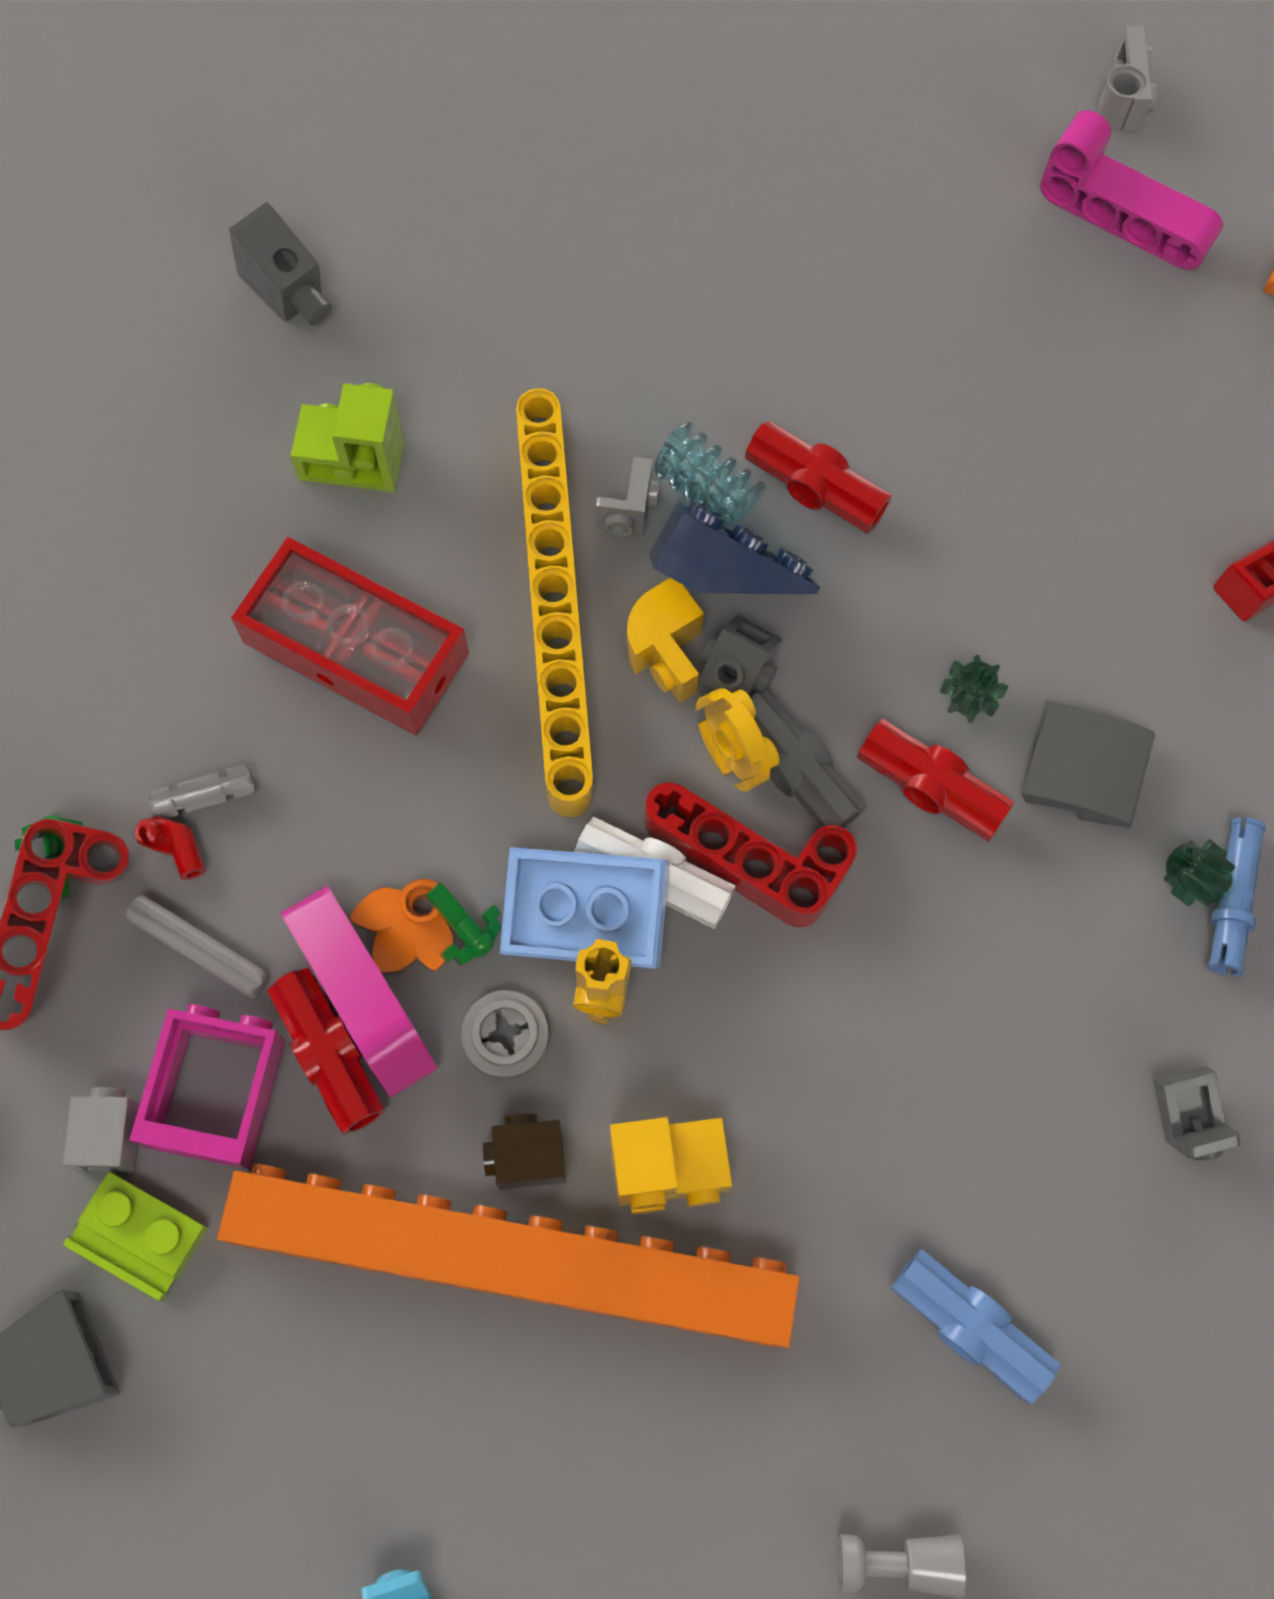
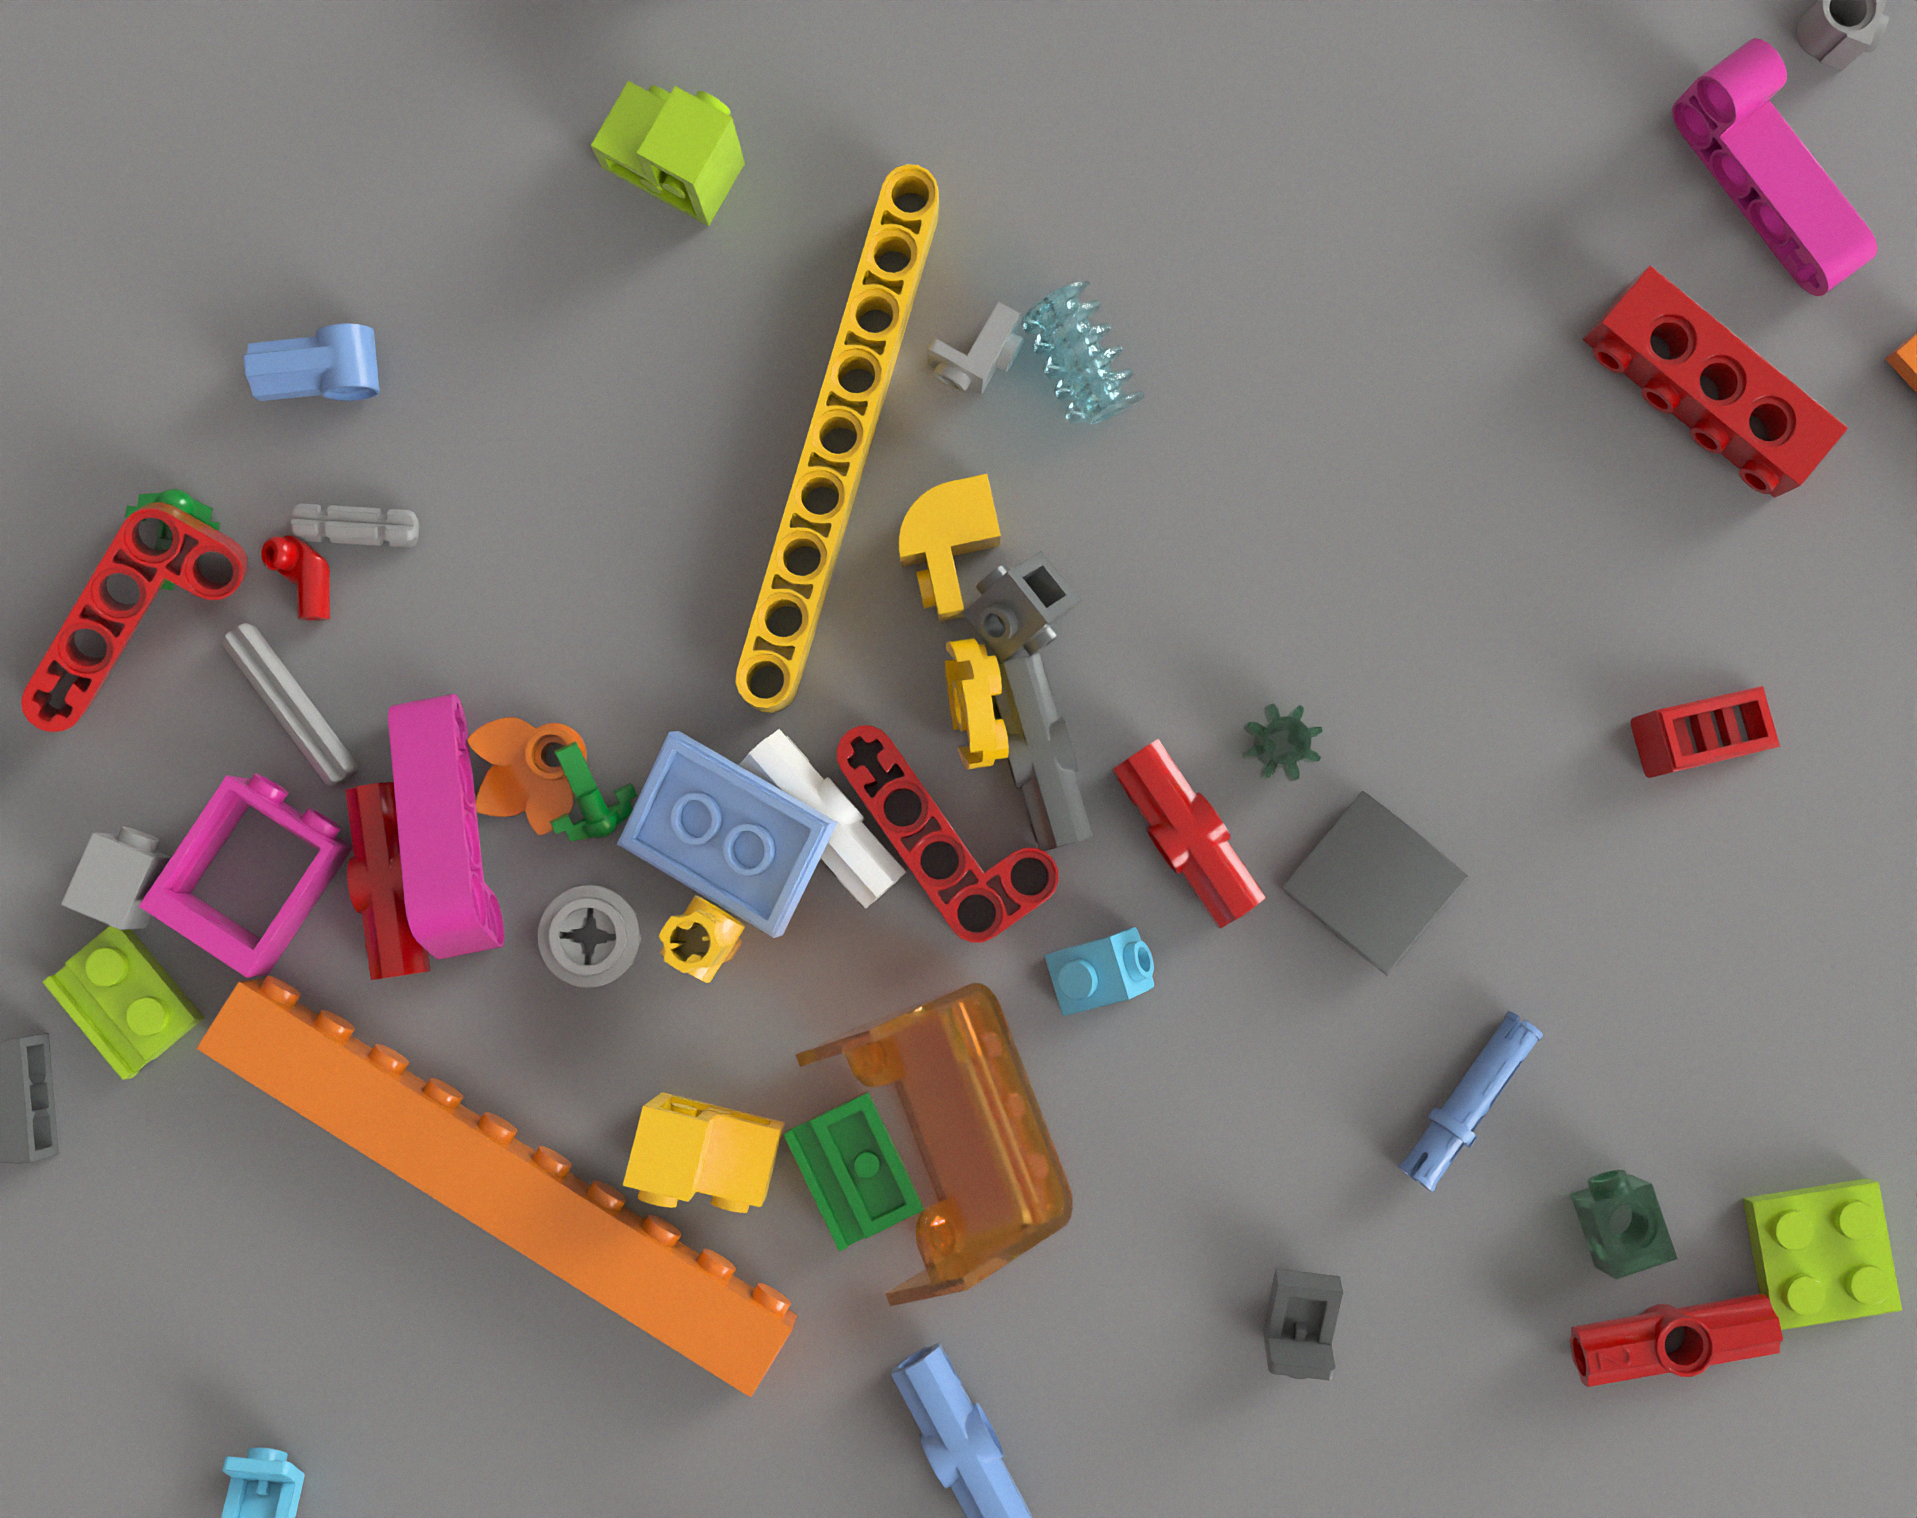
camera: 20 degrees right, 15 degrees up
(145, 679) = (333, 364): none -> medium blue piece
(351, 635) = (582, 403): brick -> none
(525, 1152) = (560, 1078): dark brown brick -> none
(718, 560) = (1053, 481): dark blue slope -> none
(791, 1136) = (854, 1170): none -> green plate
(817, 476) = (1215, 403): red piece -> none
(864, 1062) = (974, 1129): none -> clear orange windscreen
(914, 906) = (1101, 971): none -> medium azure bracket
(1158, 343) = (1699, 345): none -> red brick
(1199, 873) = (1437, 1061): clear green gear -> none

